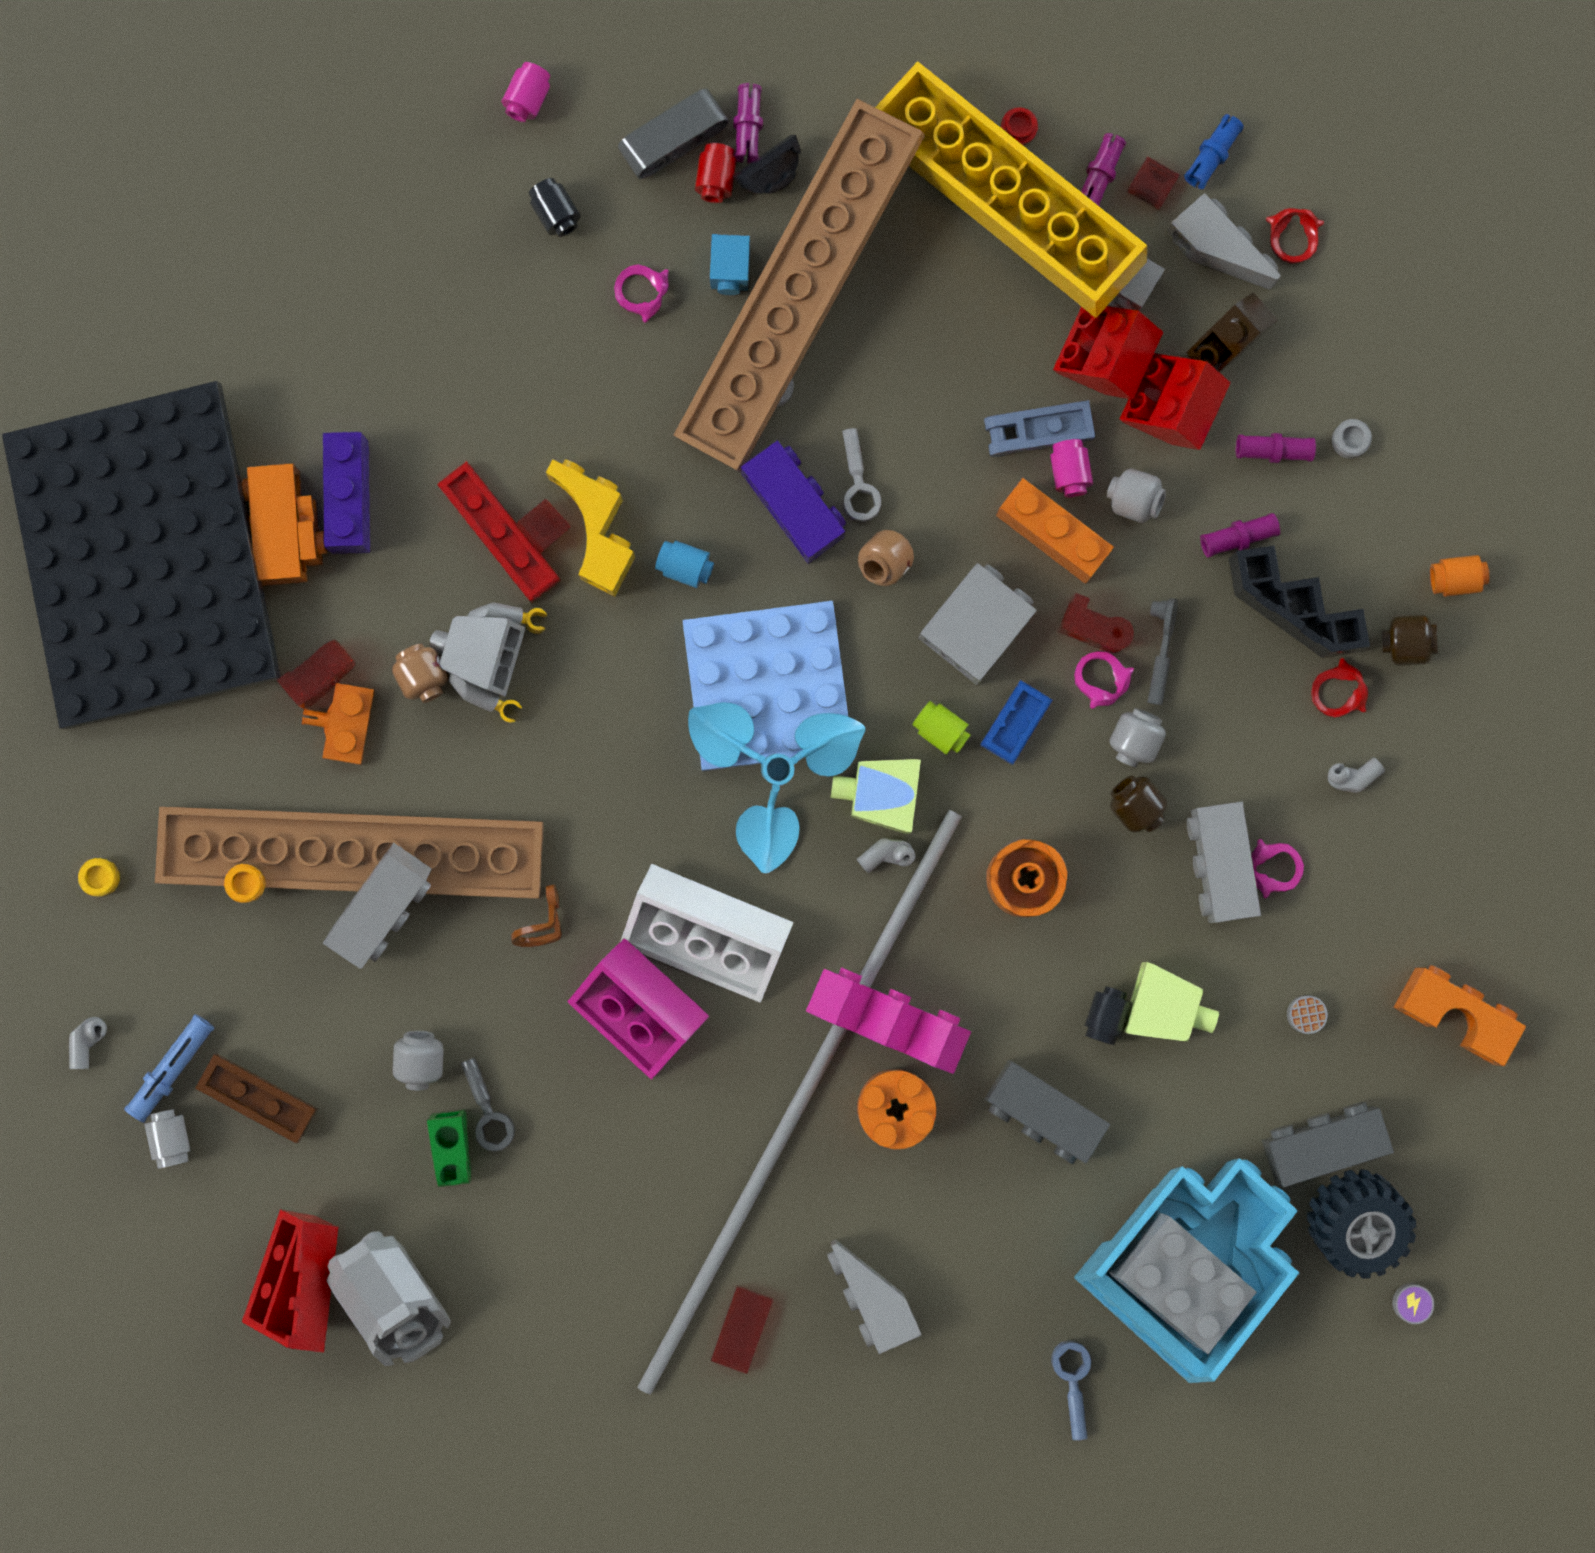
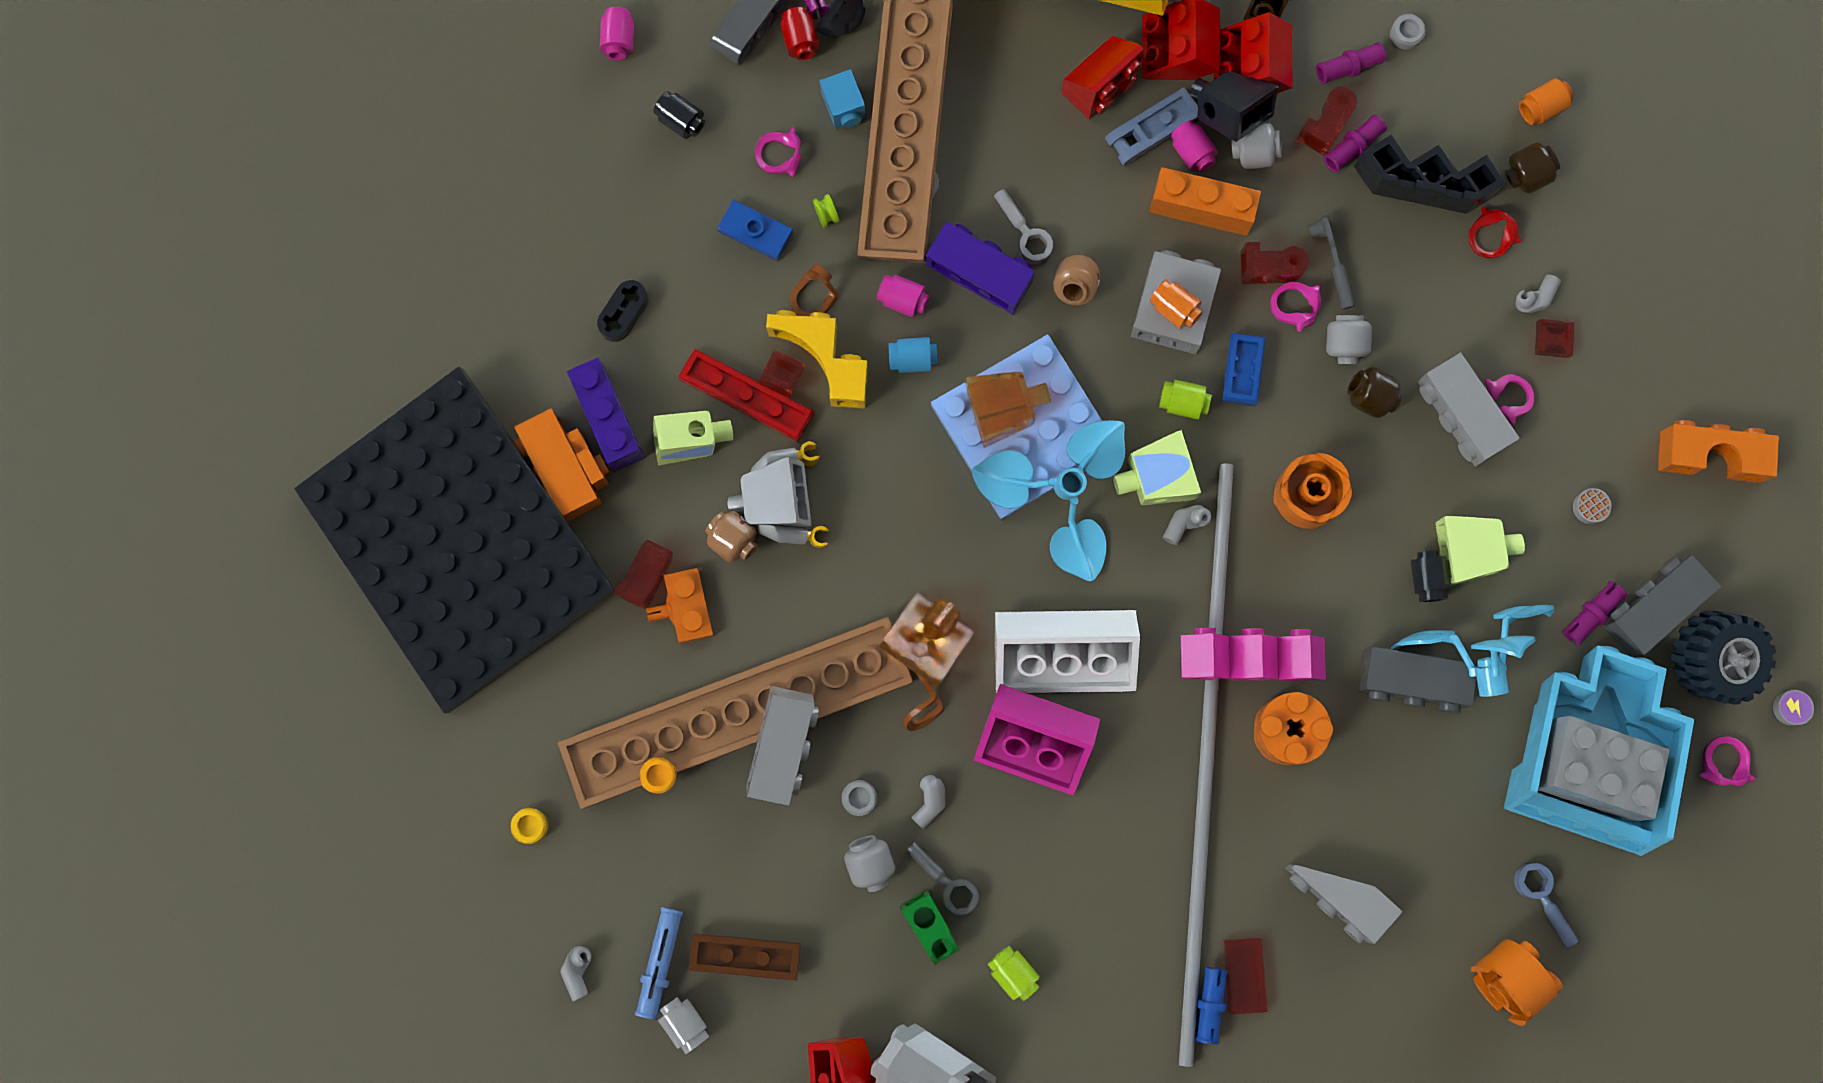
camera: 15 degrees left, 5 degrees down
(405, 542) = (674, 438): none -> yellowish green torso
(415, 397) = (616, 306): none -> black beam
(437, 990) = (859, 798): none -> light grey tile
(509, 1025) = (934, 801): none -> light grey arm
(513, 1229) = (1014, 974): none -> lime brick
(571, 861) = (927, 638): none -> clear orange plate
(581, 362) = (755, 230): none -> blue plate
(627, 469) = (816, 273): none -> dark orange piece
(661, 374) = (825, 210): none -> lime bush
(695, 1344) = (1212, 1005): none -> blue pin
(702, 497) = (903, 295): none -> dark pink brick
(751, 656) = (1003, 404): none -> clear orange torso
(971, 629) = (1176, 304): none -> orange brick
(1002, 1449) = (1516, 980): none -> orange brick
(1009, 353) = (1103, 76): none -> red slope
(1124, 1125) = (1490, 670): none -> medium azure plant
(1129, 443) = (1234, 103): none -> black torso
(1226, 502) = (1334, 116): none -> clear red leg
(1256, 1123) = (1594, 613): none -> magenta pin
(1330, 1346) = (1742, 771): none -> dark pink piece
(1351, 826) = (1554, 338): none -> clear red tile

